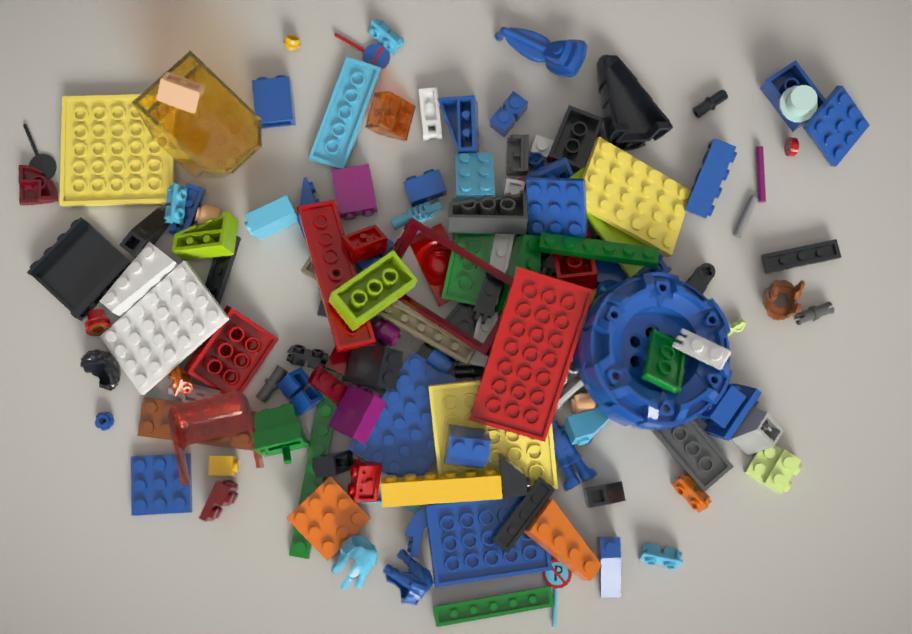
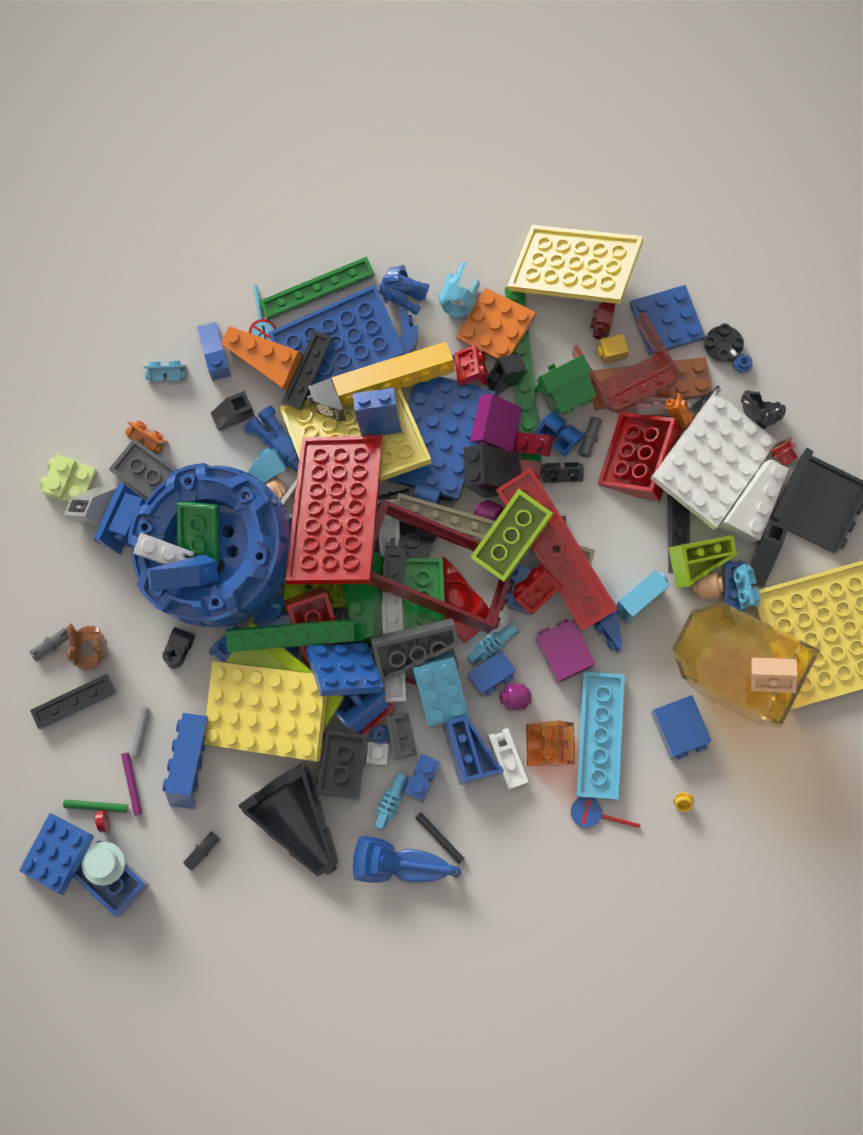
camera: 165 degrees right, 5 degrees down
(115, 445) = (723, 343): none -> black dish
(152, 392) = (704, 399): none -> black sticker
(231, 557) = (576, 264): none -> light yellow plate
(380, 30) = (576, 832): medium azure hinge -> none
(409, 162) = (515, 697): none -> magenta head
(504, 63) = (439, 838): none -> black bar
(539, 104) = (390, 801): none -> medium azure hinge
(684, 322) = (183, 573): none -> blue slope
(736, 326) = (134, 608): yellowish green piece -> none
(795, 163) = (99, 806): none -> green bar

